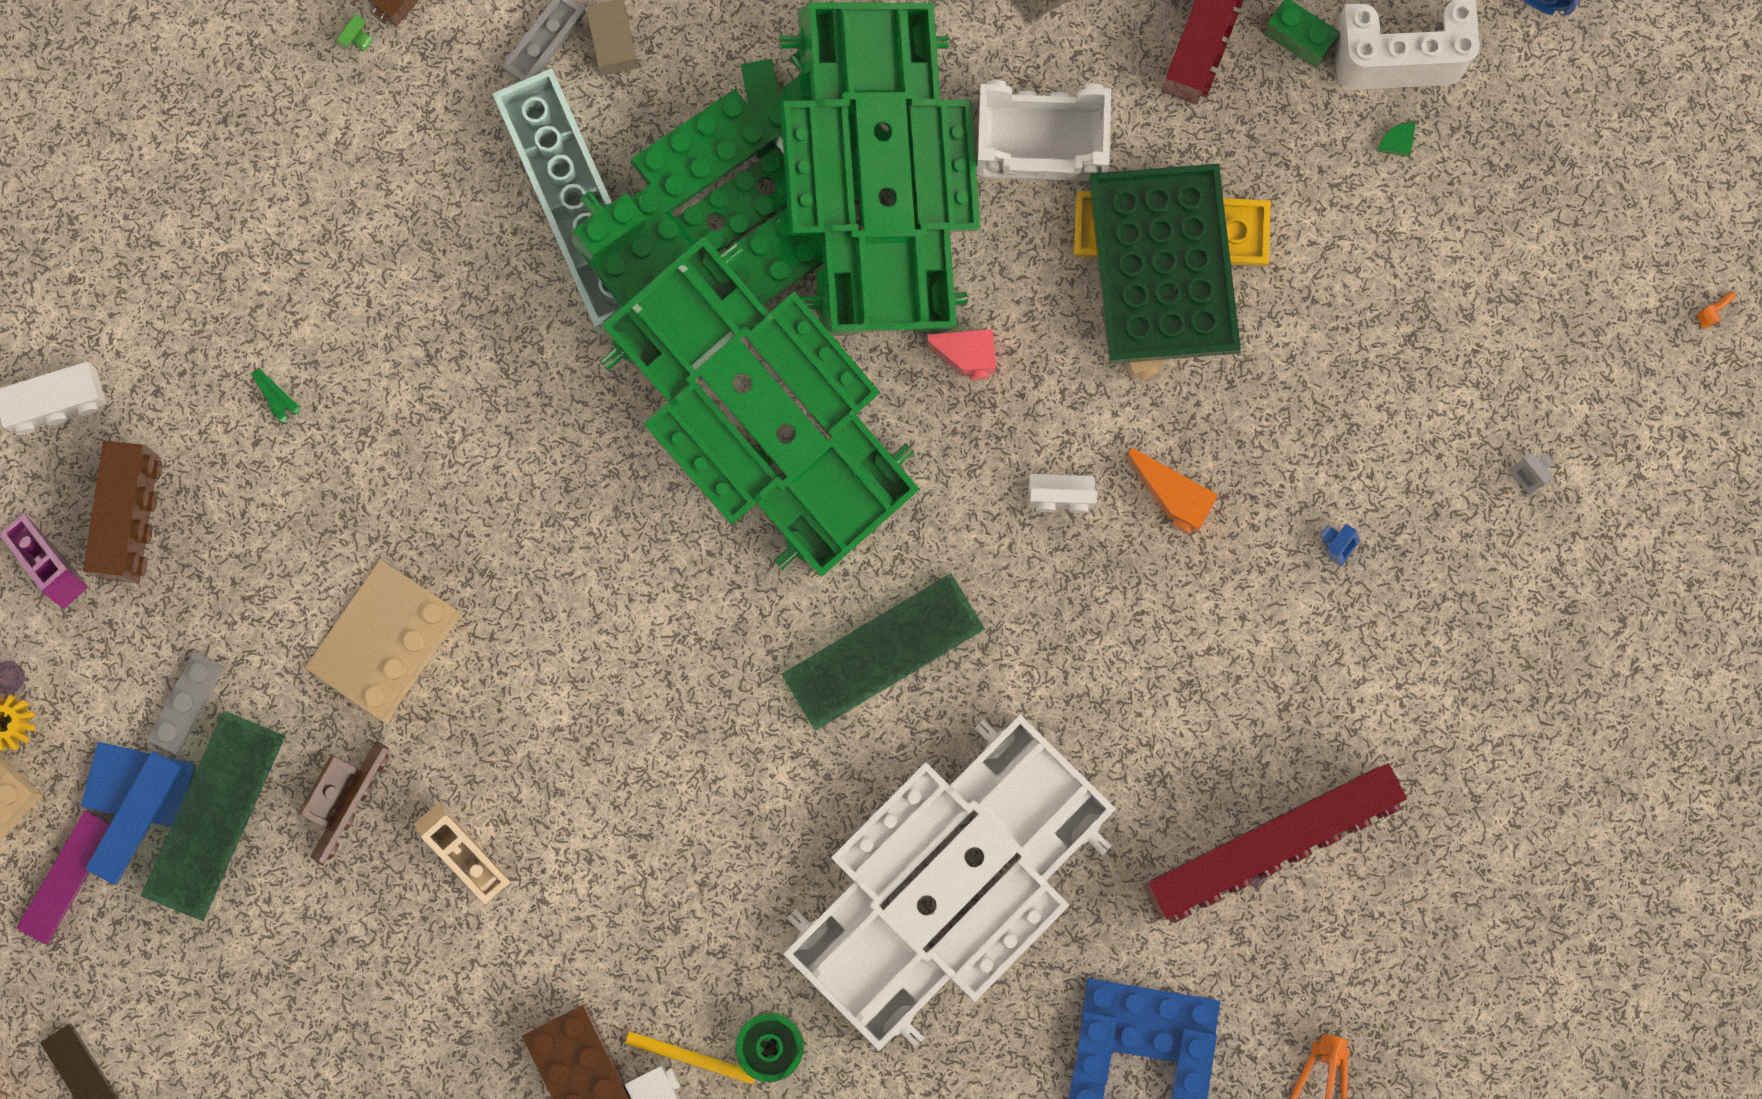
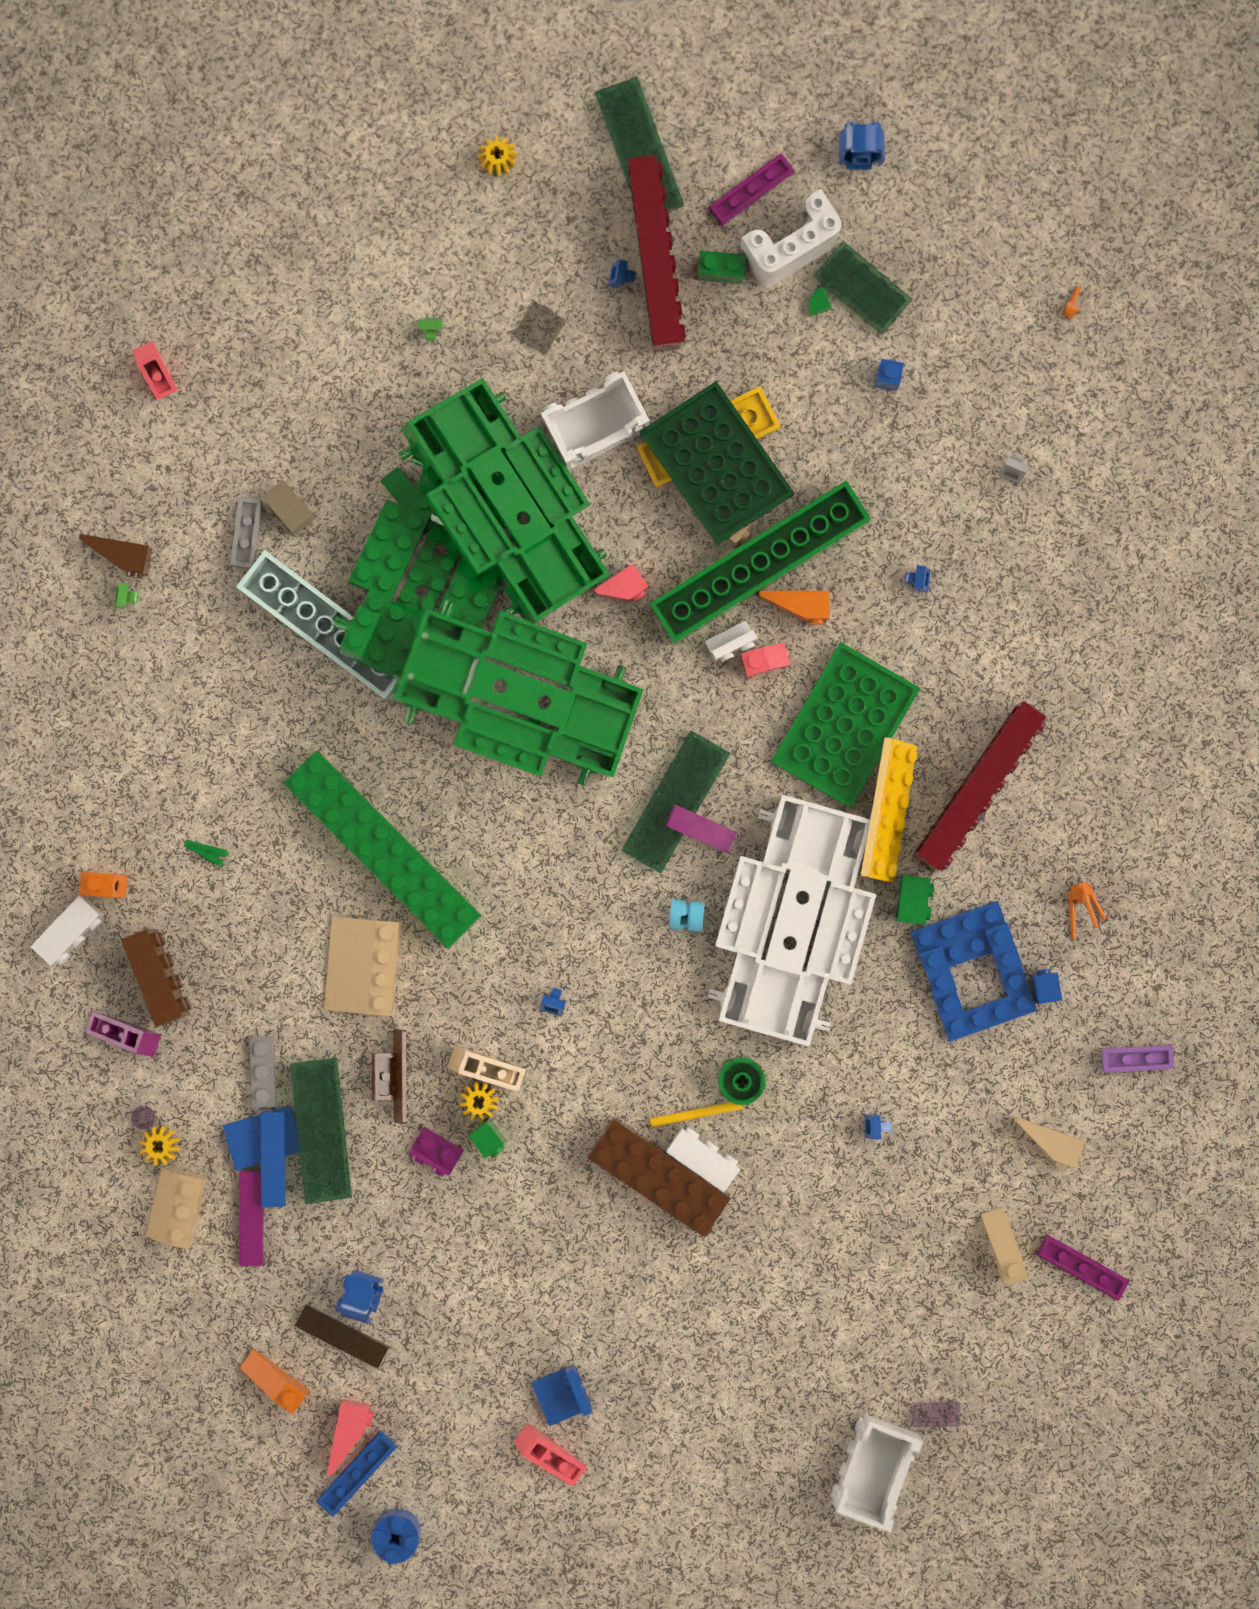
camera: 30 degrees left, 5 degrees up
(123, 364) = (103, 885): none -> orange torso
(140, 1051) = (360, 1296): none -> blue brick
(339, 922) = (435, 1152): none -> magenta bracket
(412, 942) = (488, 1139): none -> green brick
(420, 881) = (487, 1102): none -> yellow gear
(489, 511) = (383, 849): none -> green brick
(590, 818) = (553, 1003): none -> blue tile
(820, 812) = (695, 914): none -> medium azure wheel
(895, 702) = (700, 828): none -> magenta tile
(1091, 537) = (764, 660): none -> coral slope
(1114, 940) = (913, 899): none -> green brick
(1144, 809) = (889, 810): none -> yellow plate
(1147, 673) = (845, 725): none -> green plate
(1151, 414) = (760, 562): none -> green brick
(1438, 272) = (889, 374): none -> blue brick
(1462, 151) = (862, 288): none -> clear green plate

